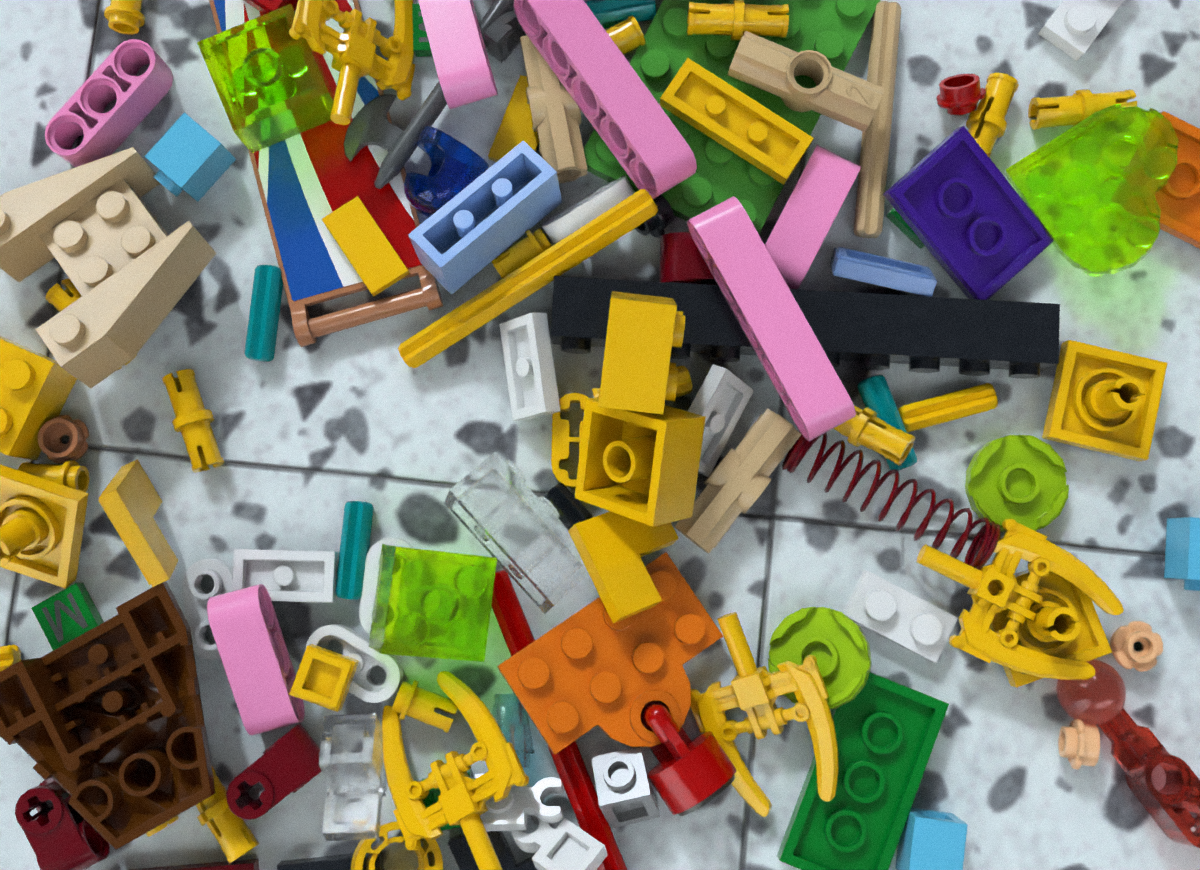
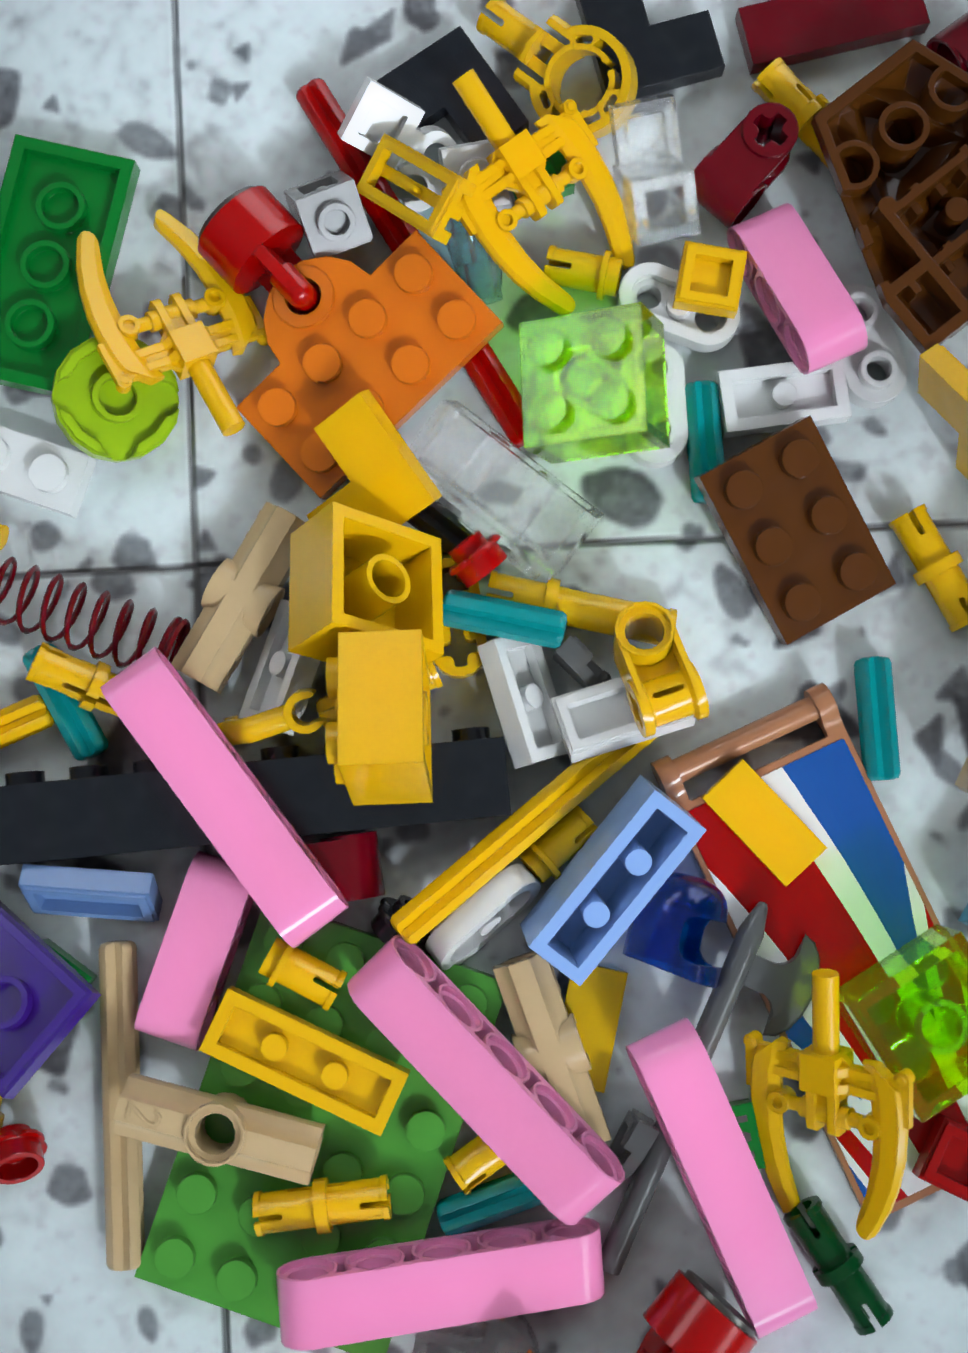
camera: 170 degrees right, 0 degrees up
(297, 466) = (795, 530): none -> reddish brown plate
(423, 359) = (658, 680): none -> yellow piece
(456, 342) = (601, 720): none -> white tile
(476, 431) = (583, 609): none -> yellow pin
(482, 387) = (578, 663): none -> dark grey tile
(525, 763) = (444, 205): none -> yellow tile
(535, 427) = (504, 618): none -> teal axle
(549, 477) = (476, 557): none -> red plate
(727, 372) = (270, 722): none -> yellow arm
(730, 182) = (296, 971): none -> yellow pin

